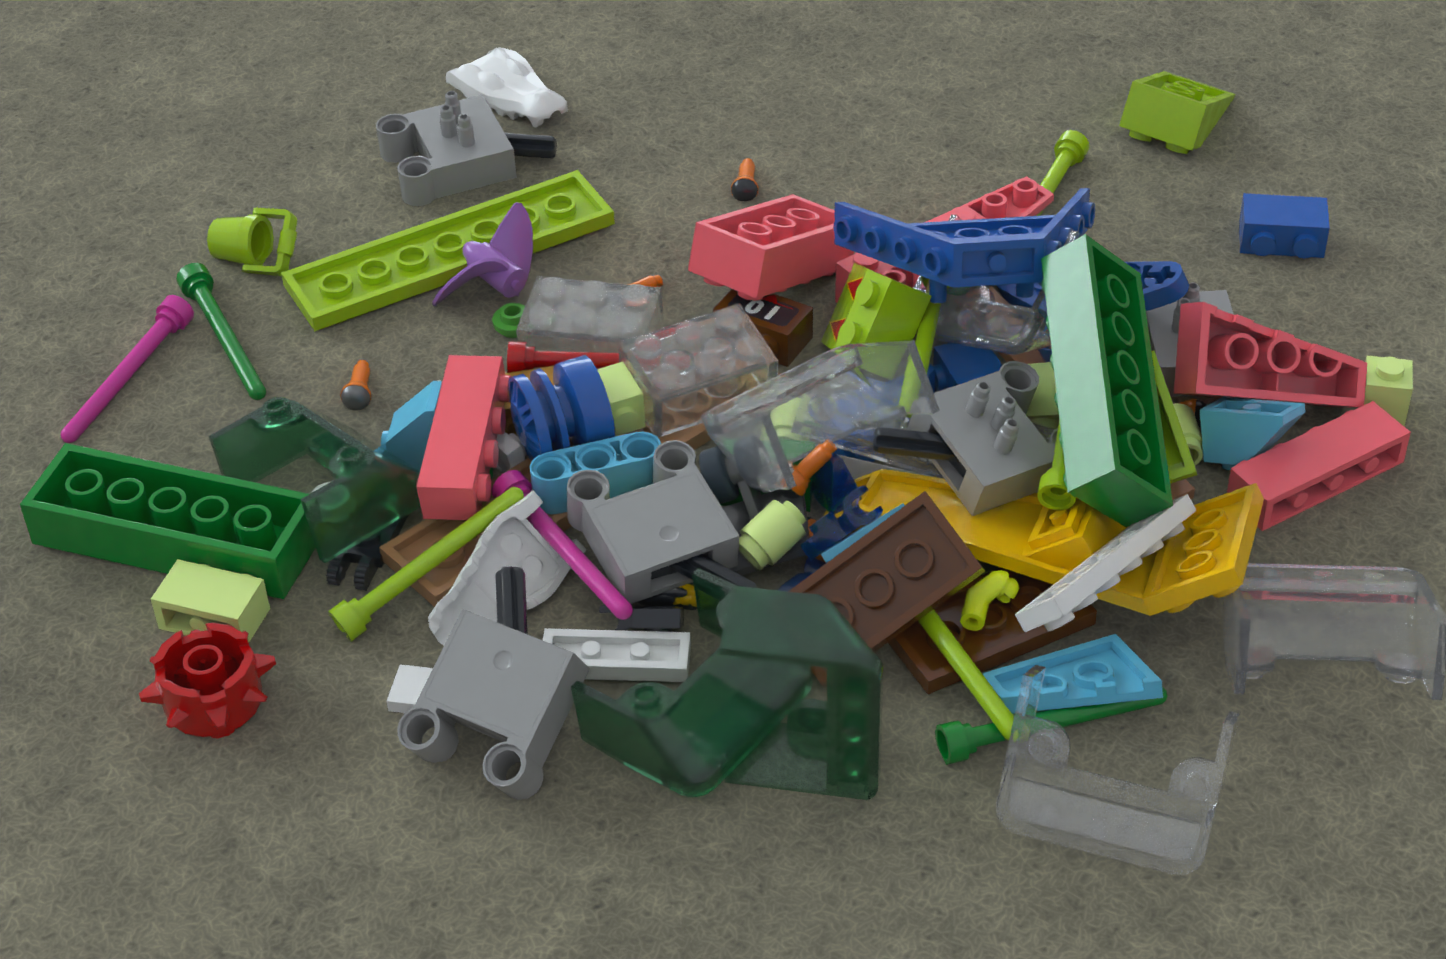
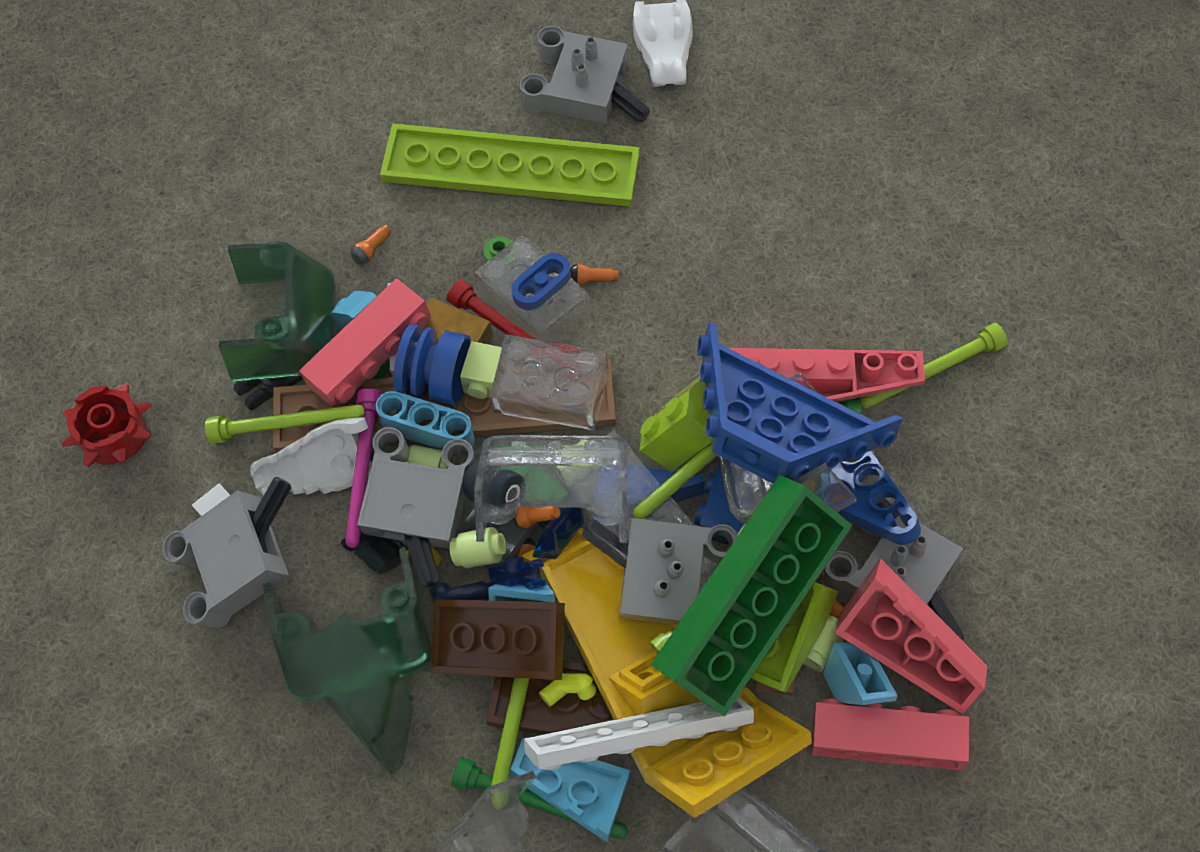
camera: 40 degrees right, 20 degrees up
(163, 512) = (176, 286): green brick -> none
(170, 316) = (307, 118): dark pink piece -> none
(198, 284) = (343, 98): green piece -> none
(204, 594) = (157, 366): yellowish green brick -> none
(251, 240) = (398, 84): lime piece -> none
(502, 261) = (524, 202): medium lavender piece -> none
(607, 289) = (538, 282): none -> blue plate
(627, 653) = (336, 563): white plate -> none
(744, 186) = (740, 228): piece -> none
(767, 247) = (676, 305): coral brick -> none
(781, 322) = (640, 361): reddish brown brick -> none
(1173, 110) = (1104, 349): lime slope -> none
(1283, 225) = (1073, 513): blue brick -> none
(1390, 385) = (996, 709): yellowish green brick -> none

